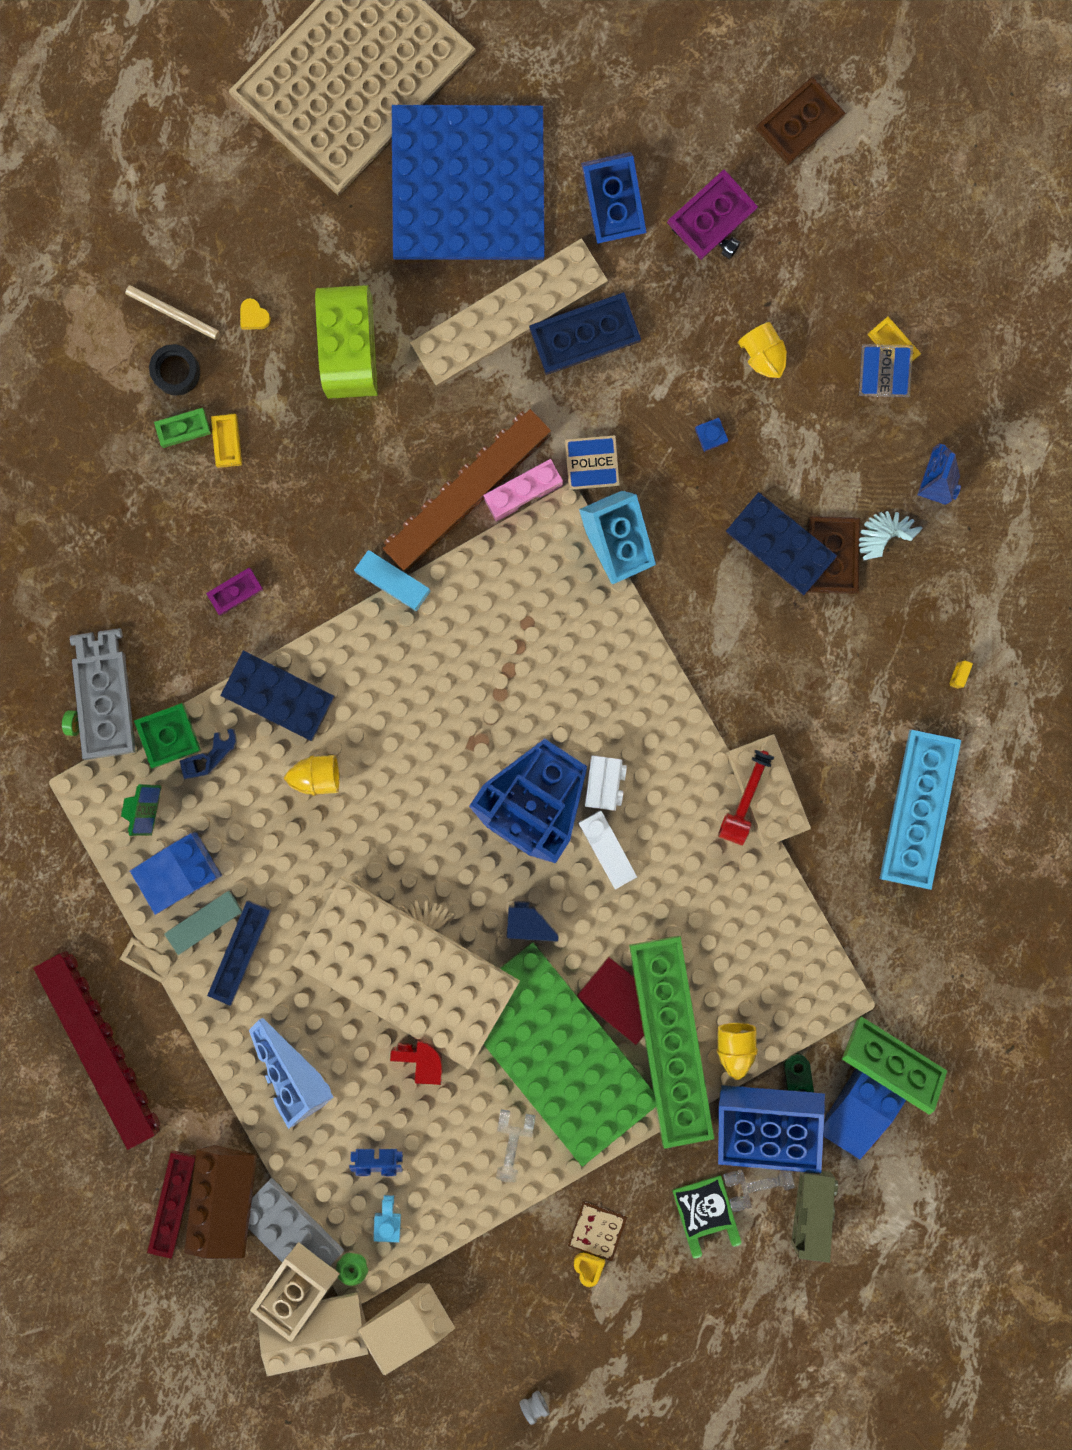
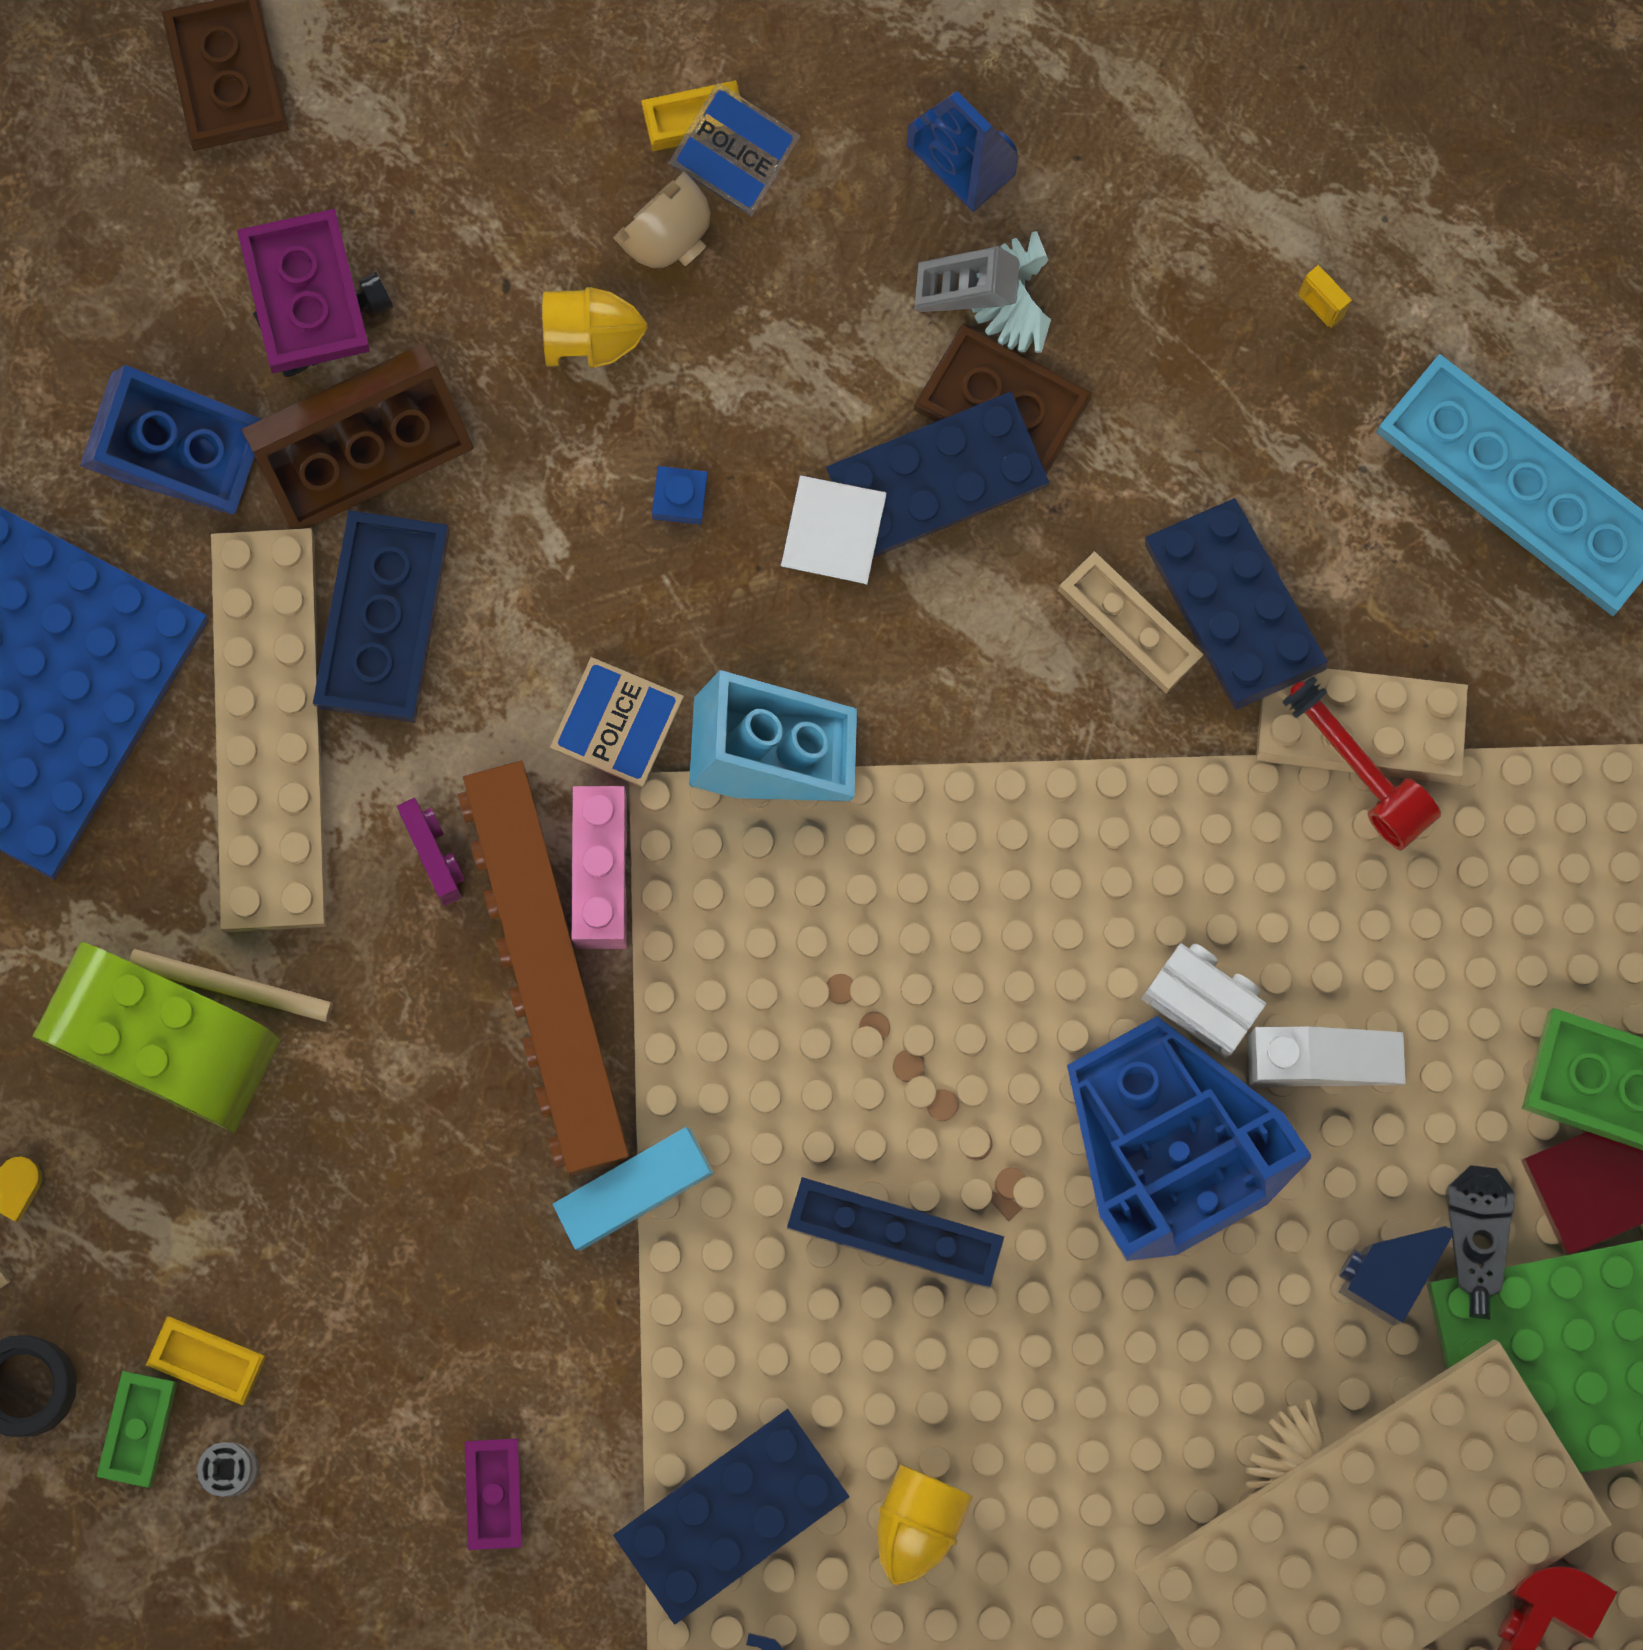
camera: 65 degrees left, 10 degrees down
(191, 476) = (236, 1469): none -> light grey wheel
(388, 360) = (233, 986): none -> tan bar
(432, 702) = (895, 1232): none -> dark blue plate
(486, 423) = (441, 869): none -> magenta plate
(572, 951) = (1480, 1219): none -> black piece
(659, 277) = (358, 438): none -> reddish brown slope
(731, 510) = (833, 529): none -> white sticker
(759, 664) = (1130, 622): none -> tan plate
(793, 706) = (1235, 604): none -> dark blue plate
(832, 360) = (668, 226): none -> tan cylinder
(882, 523) = (995, 287): none -> light grey slope

